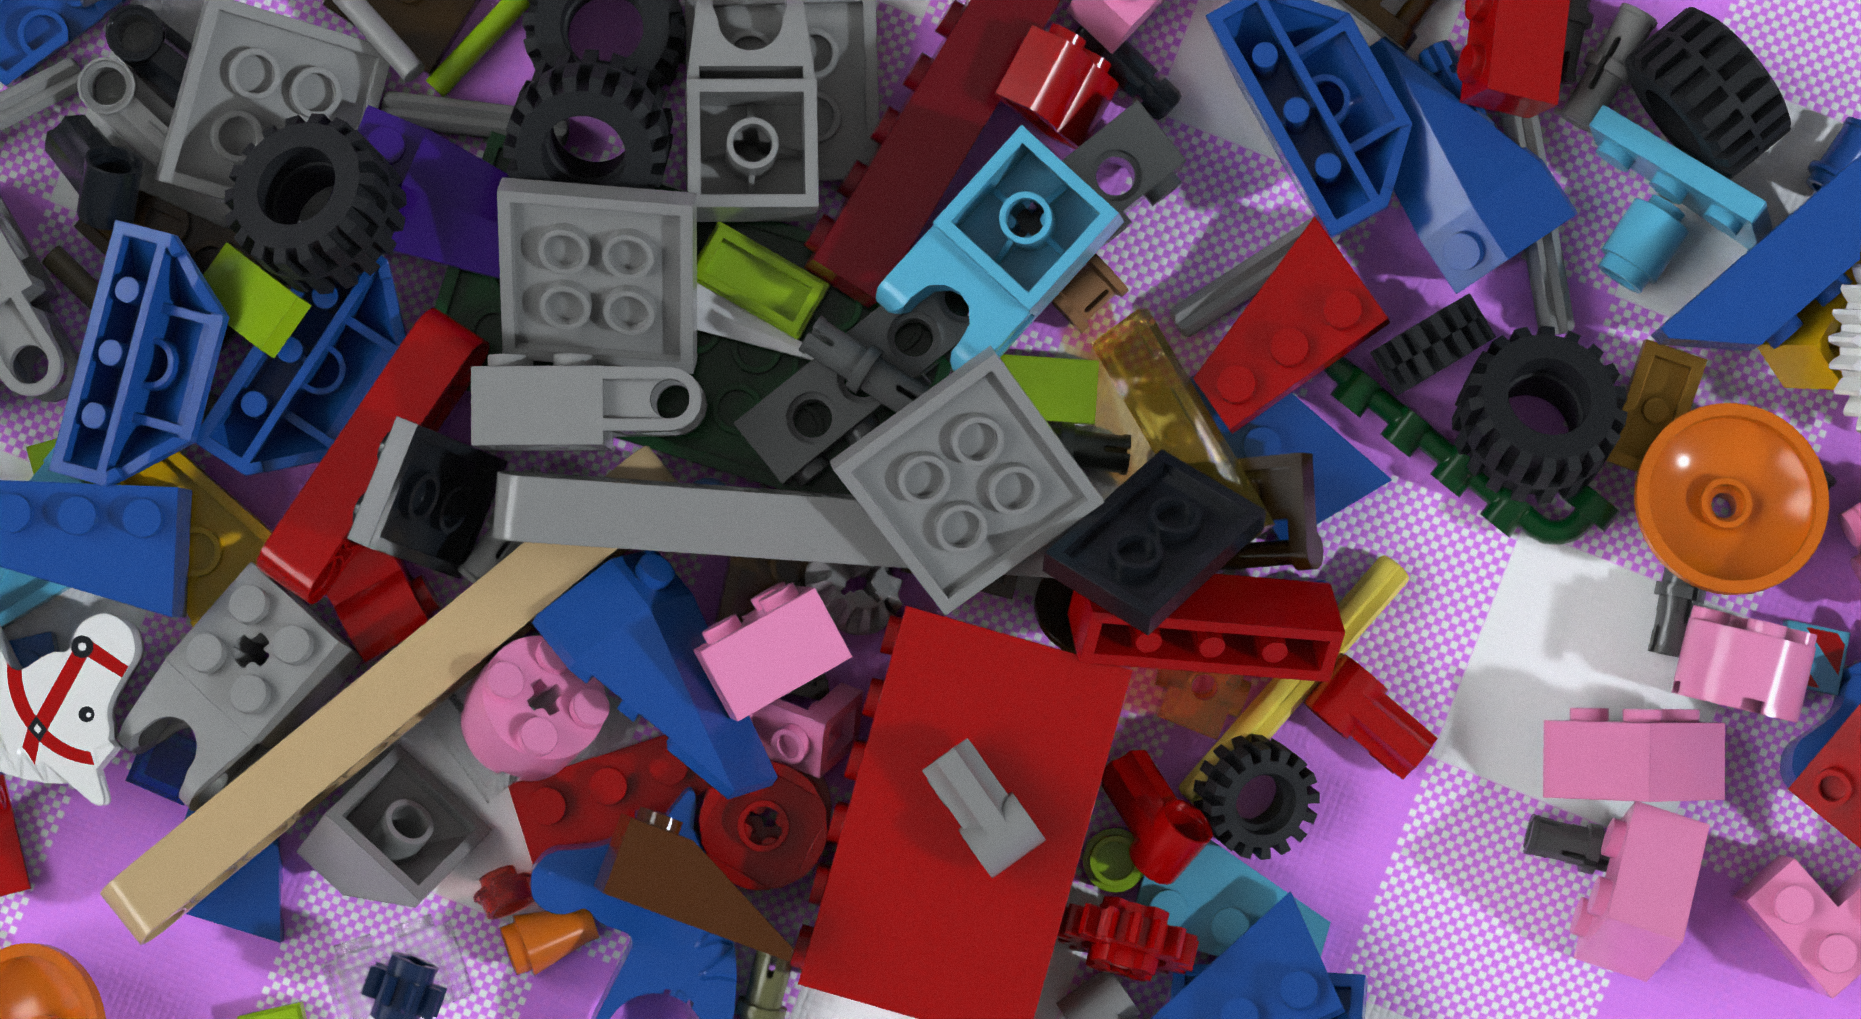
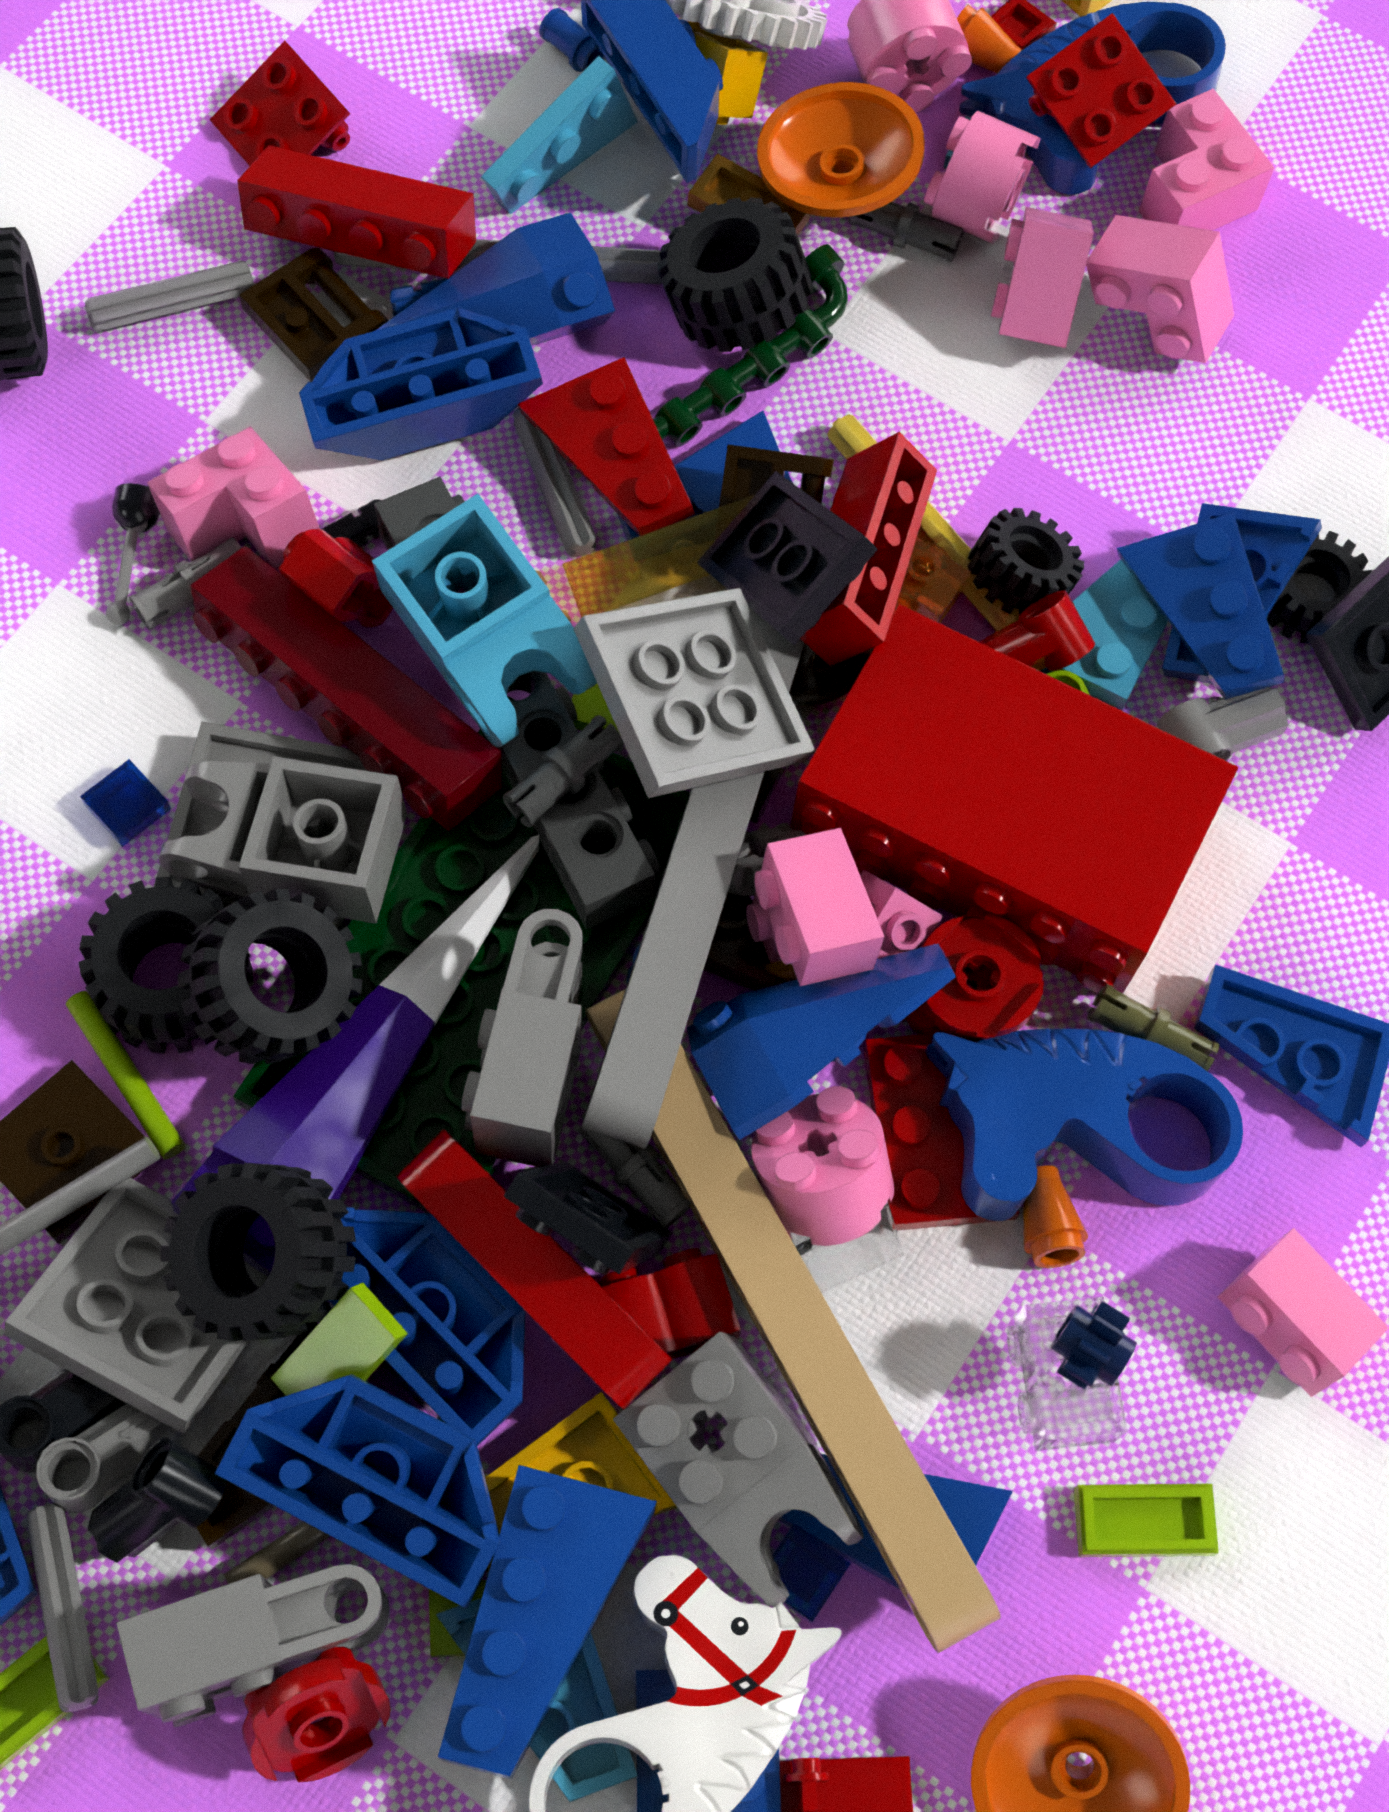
camera: 85 degrees left, 20 degrees down
(393, 834) = (927, 1347): light grey slope -> none
(457, 115) = (212, 1121): light grey axle -> none
(504, 892) = (997, 1251): clear red plate -> none
(598, 273) = (402, 995): light grey plate -> none
(675, 878) = (1026, 1034): reddish brown slope -> none
(759, 280) = (448, 874): lime tile -> none
(990, 818) = (1022, 736): light grey piece -> none
(1127, 938) = (1144, 671): red gear -> none
(1360, 709) = (974, 466): red piece -> none
(1432, 344) = (654, 341): black tyre -> none
(1566, 843) = (1110, 337): dark grey pin -> none
(1607, 66) = (426, 160): light grey pin -> none
(1643, 243) = (605, 185): medium azure brick -> none
(1708, 92) = (488, 89): black tyre -> none

